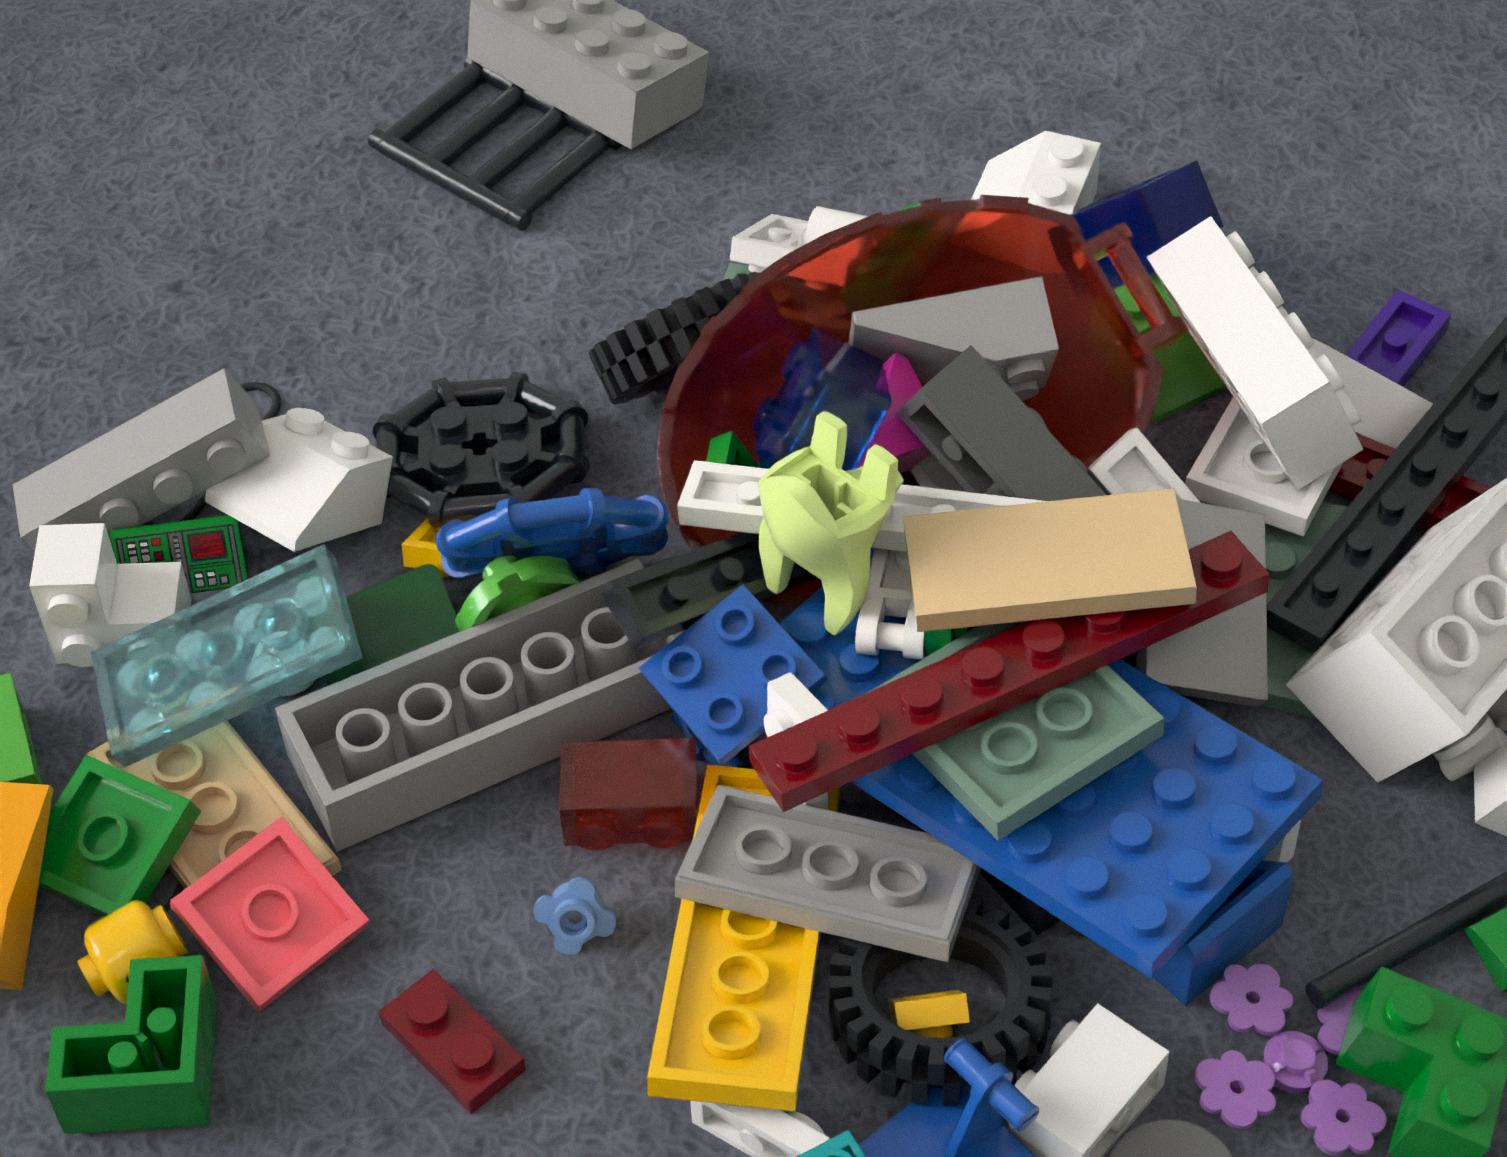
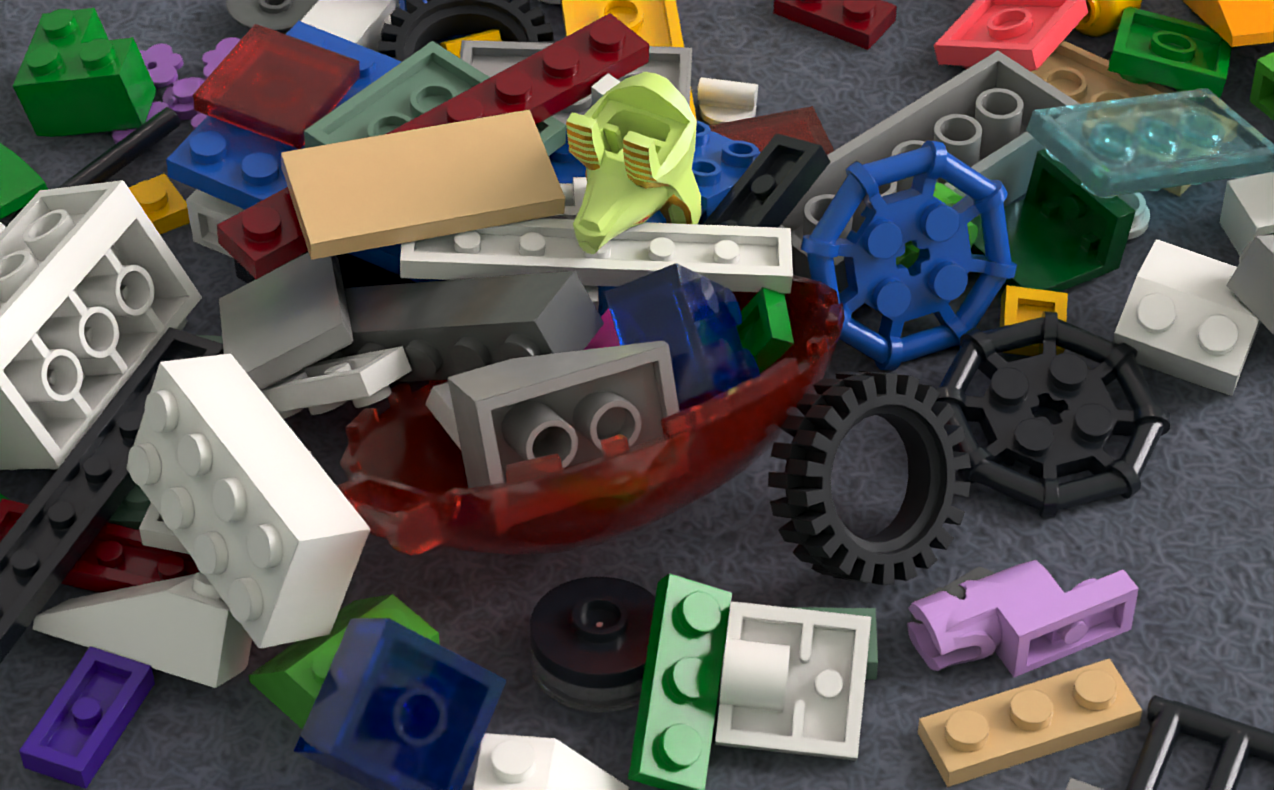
camera: 165 degrees right, 5 degrees down
(577, 896) = (776, 78): medium blue plate -> none
(593, 280) = (1019, 617): none -> lavender plate
(624, 227) = (1029, 722): none -> tan plate
(639, 901) = (726, 100): none -> white plate
(1189, 821) = (276, 85): none -> clear red tile
(1341, 896) = (161, 203): none -> yellow plate

